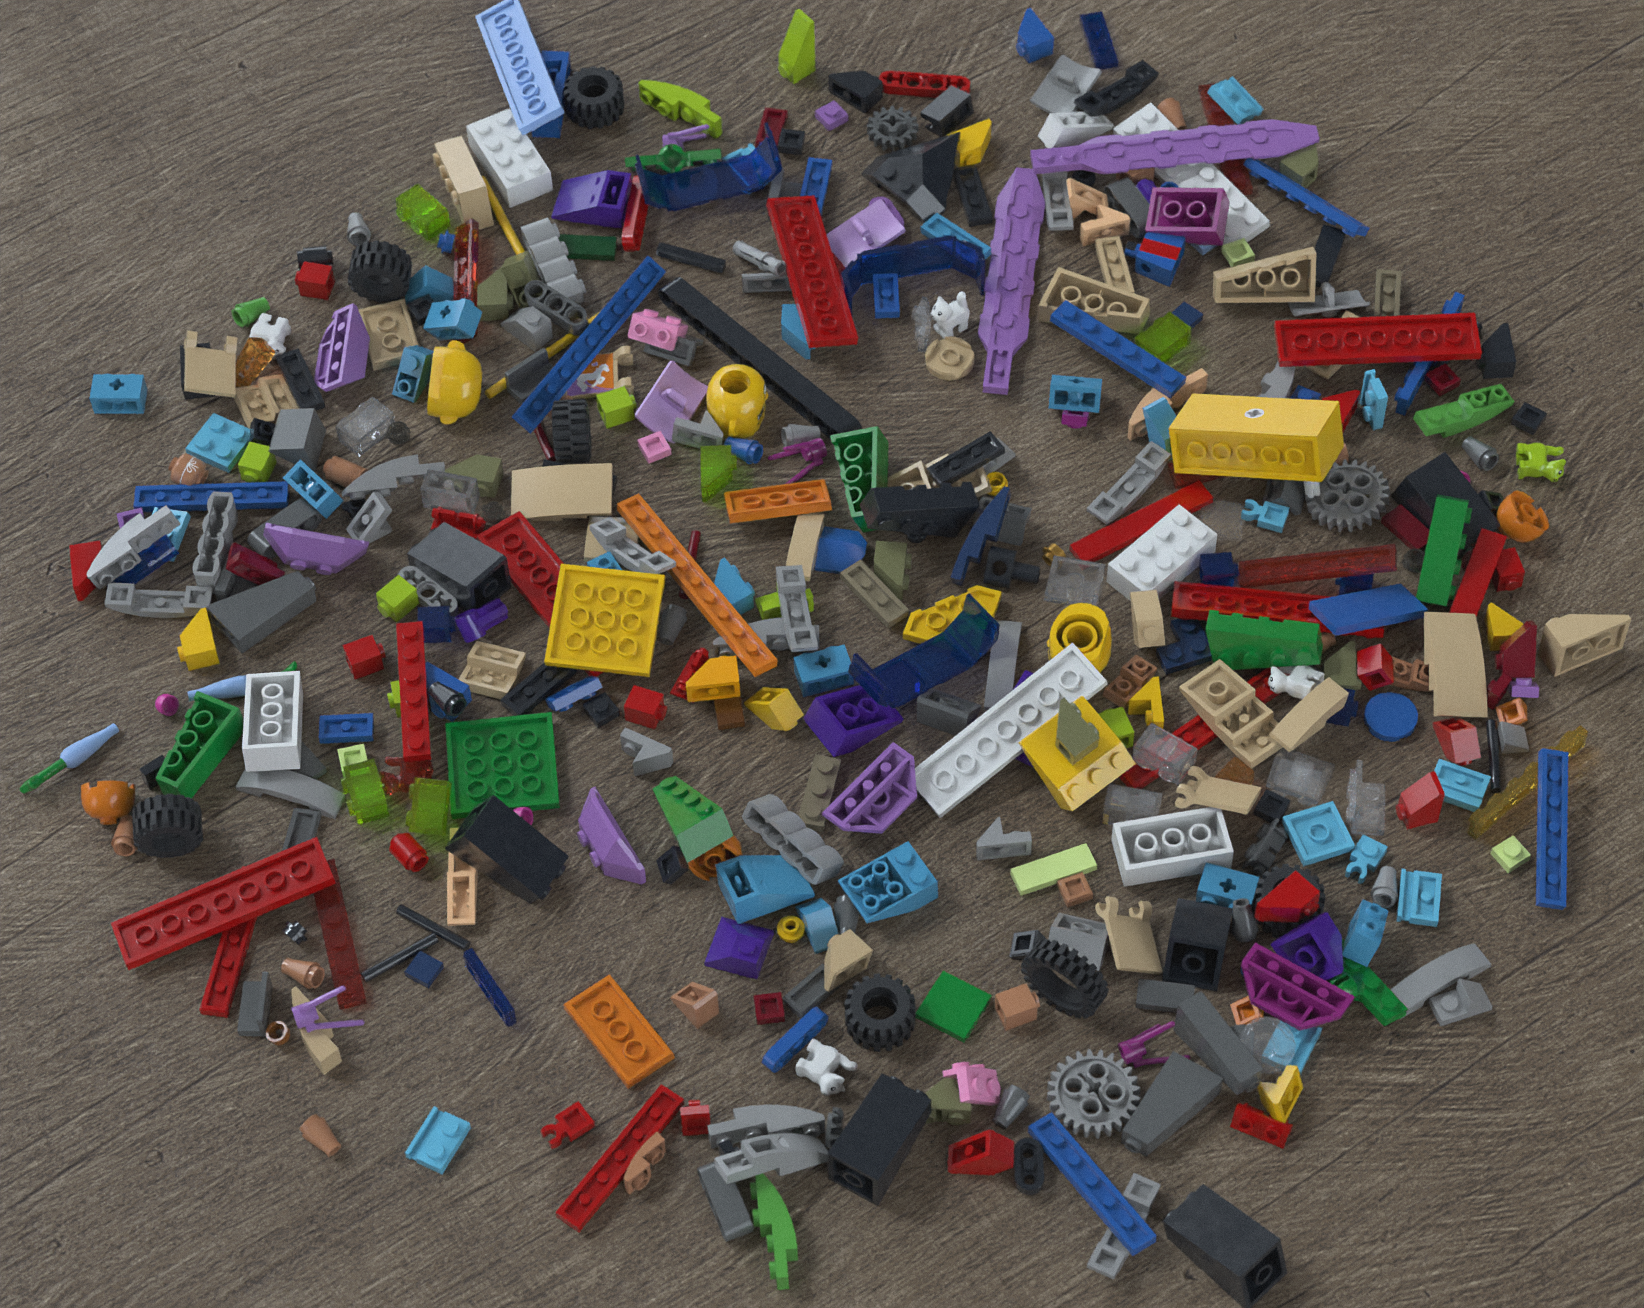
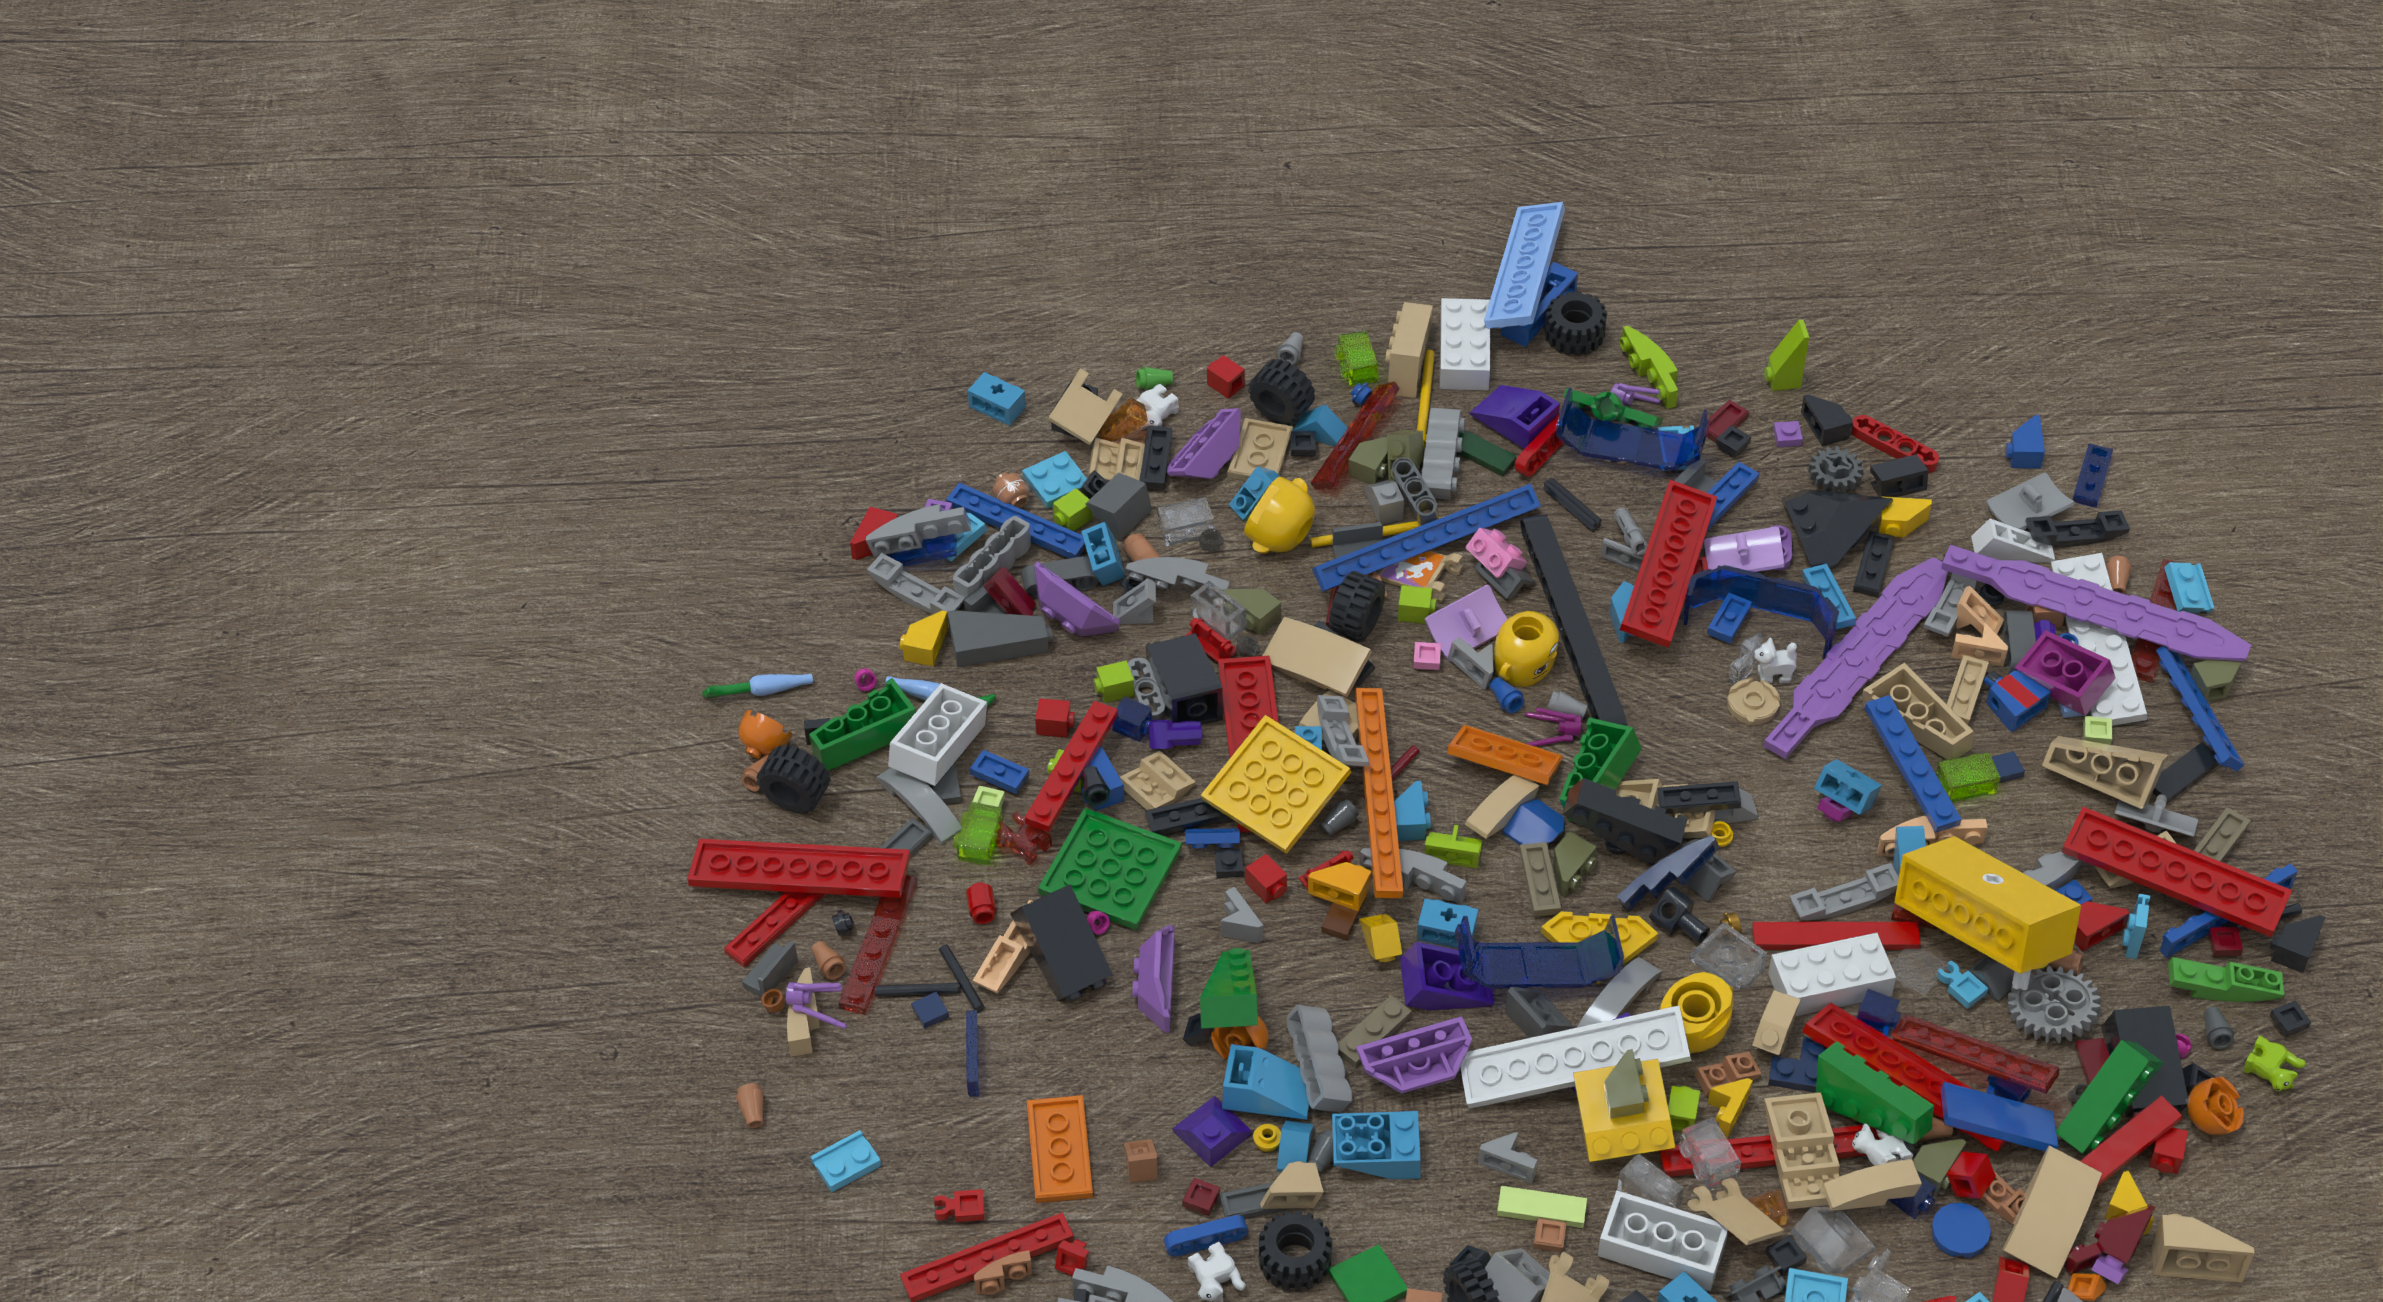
camera: 30 degrees right, 5 degrees down
(316, 255) = (1240, 355): black brick -> none
(429, 806) = (1021, 872): clear neon green brick -> none
(453, 319) = (1318, 462): dark azure brick -> none
(716, 469) = (1467, 701): clear neon green slope -> none
(795, 609) = (1452, 855): light grey slope -> none

